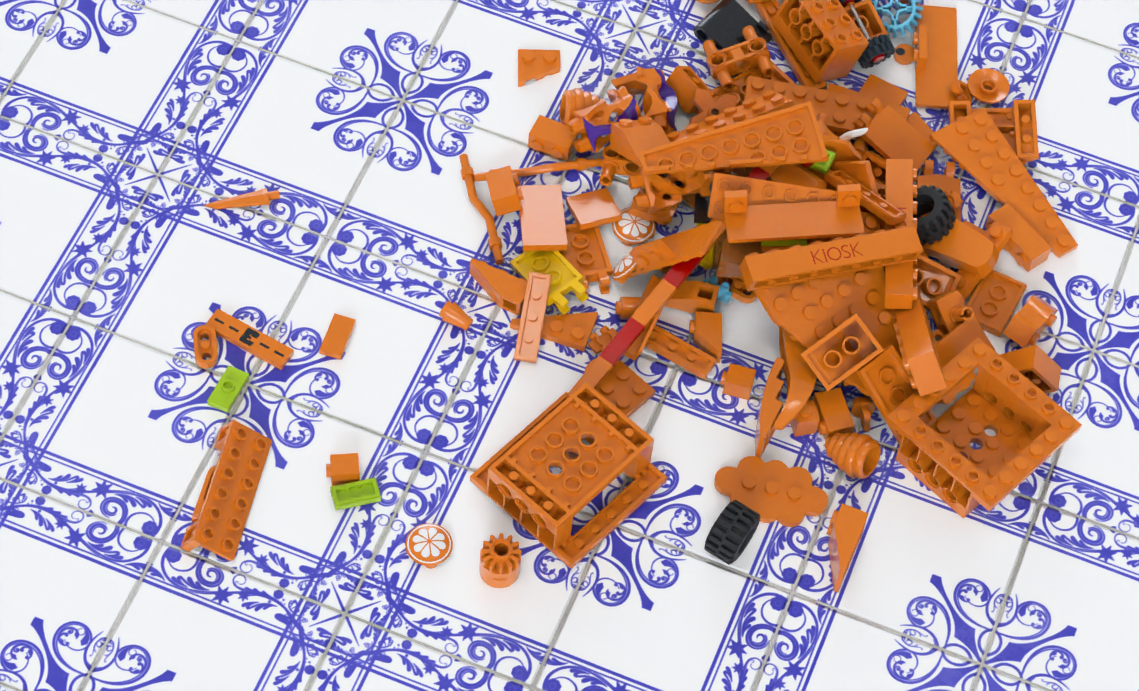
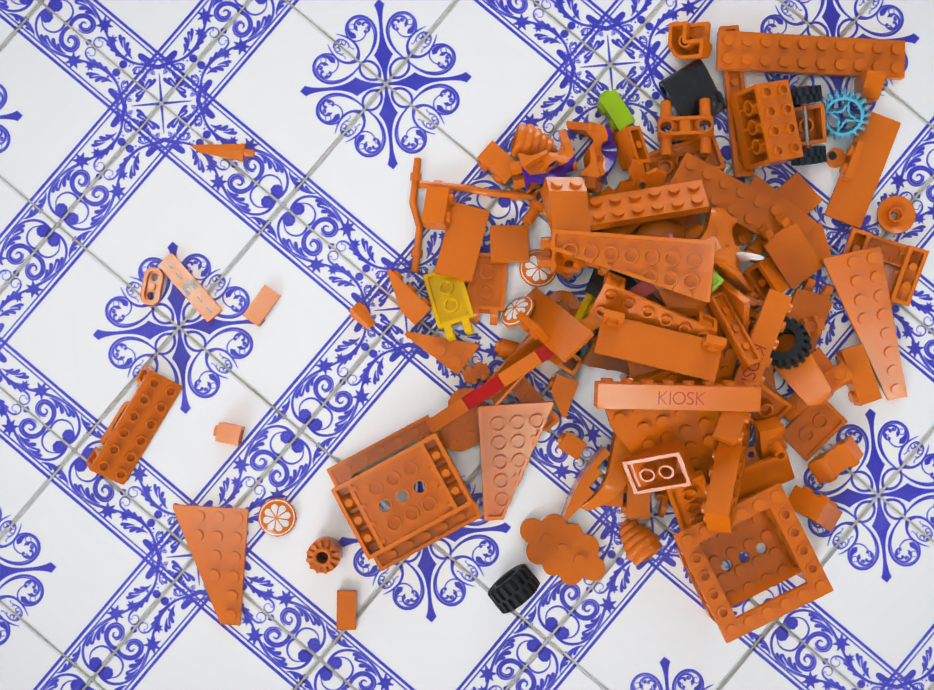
camera: 25 degrees right, 30 degrees up
(228, 389) = (161, 330): lime plate -> none
(355, 494) = (232, 456): lime plate -> none
(372, 598) = (219, 550): none -> orange wing
(532, 317) = (422, 339): tile -> none
(537, 64) = (510, 80): orange wing -> none
(545, 621) = (346, 609): none -> orange tile
(656, 57) = (615, 110): none -> lime brick
(666, 394) = (506, 444): none -> orange wing
(845, 533) = (602, 619): orange slope -> none
(961, 91) = (869, 215): orange tile -> none

